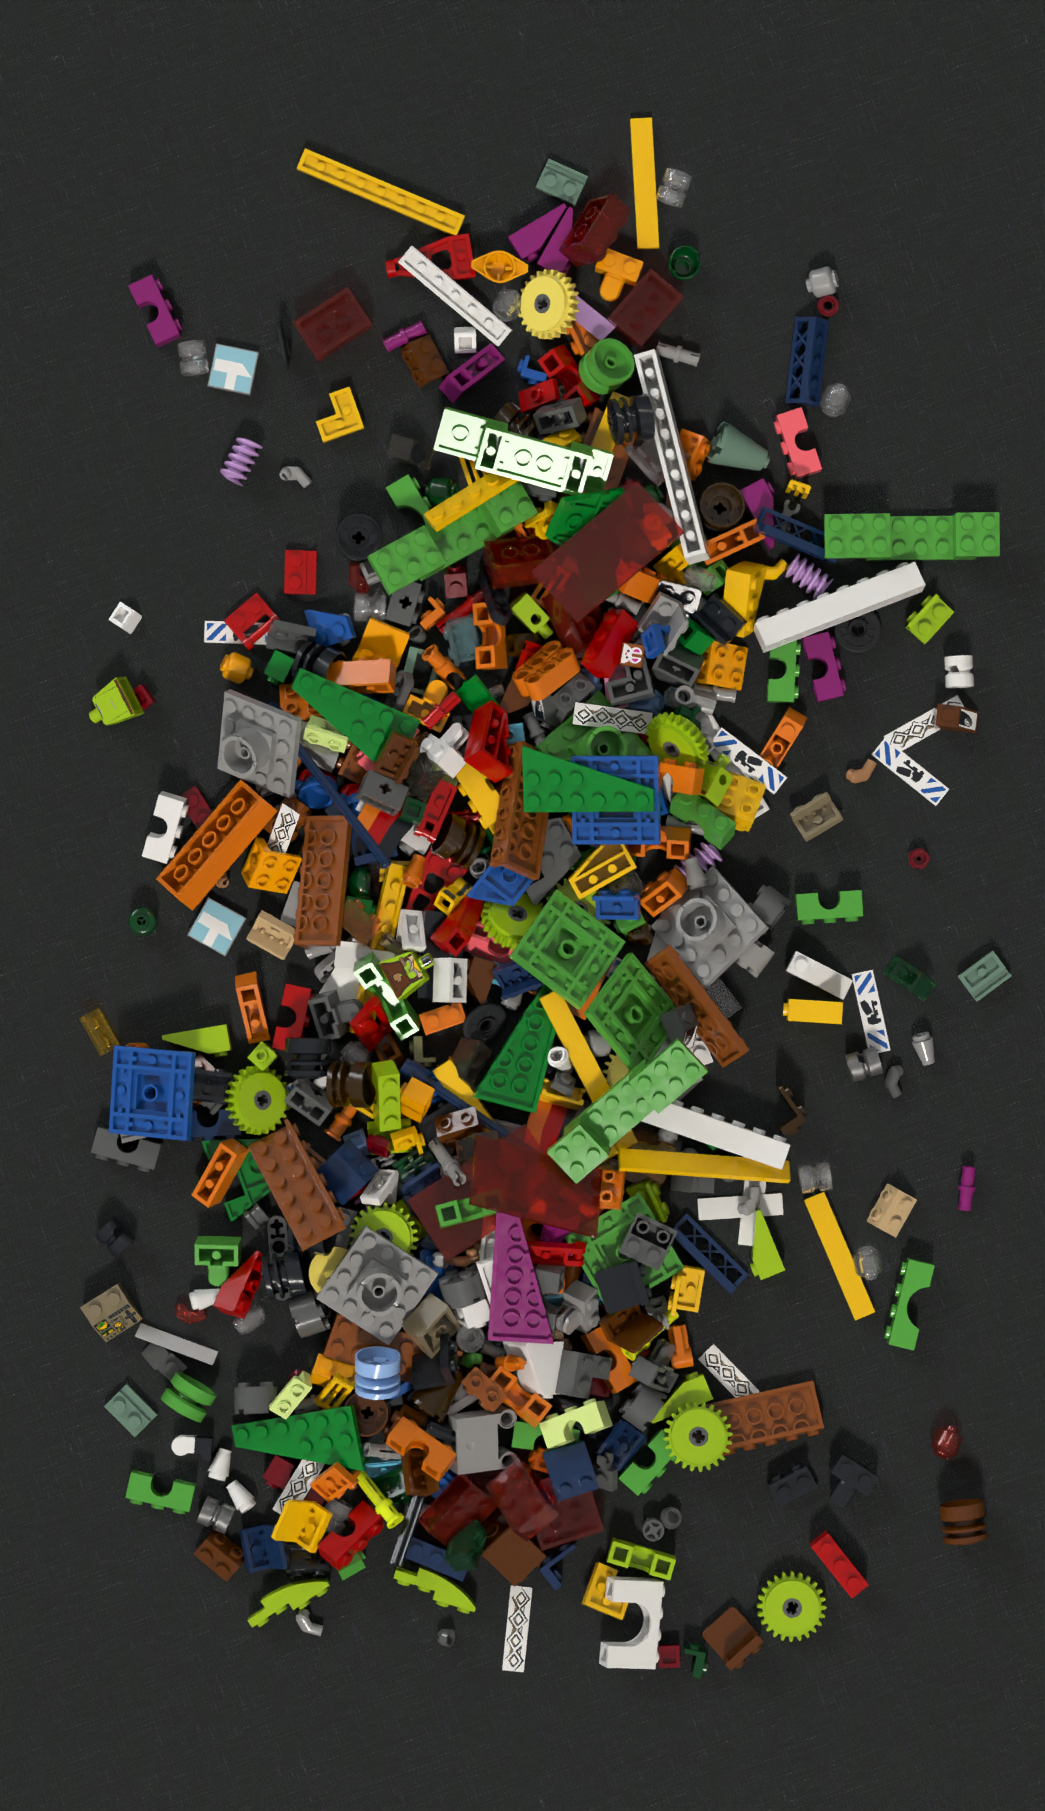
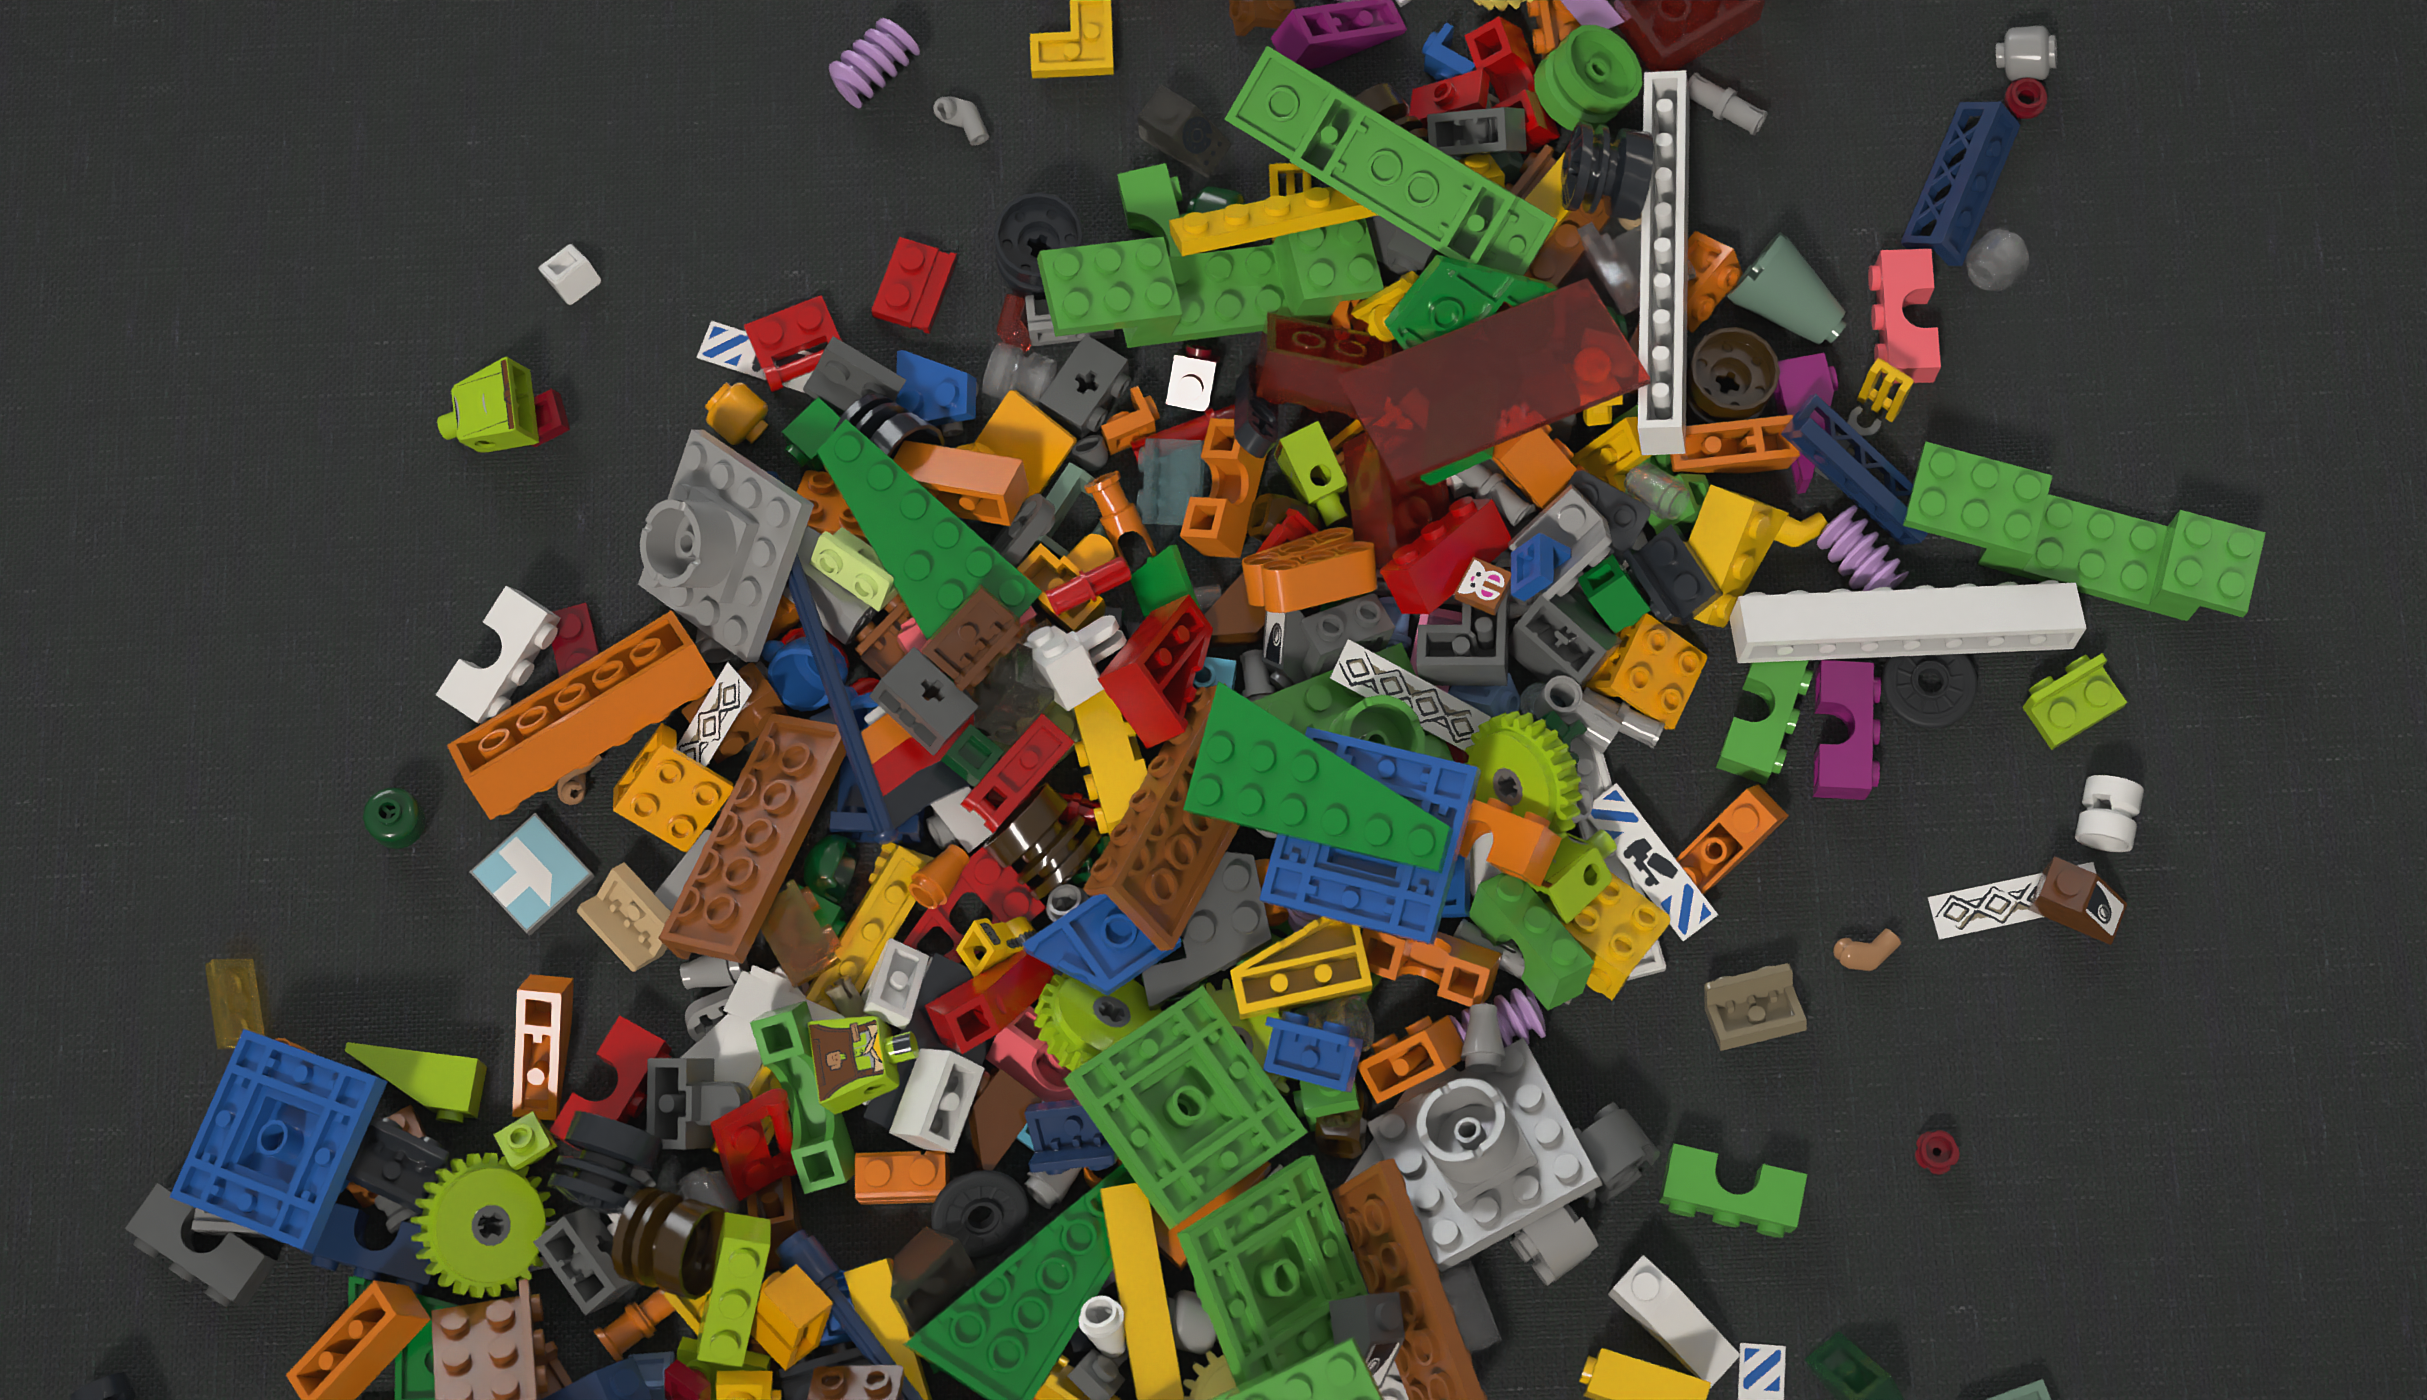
camera: 20 degrees right, 15 degrees down
(416, 1048) = (832, 1224): olive bracket -> none
(910, 772) = (1963, 982): white sticker -> none

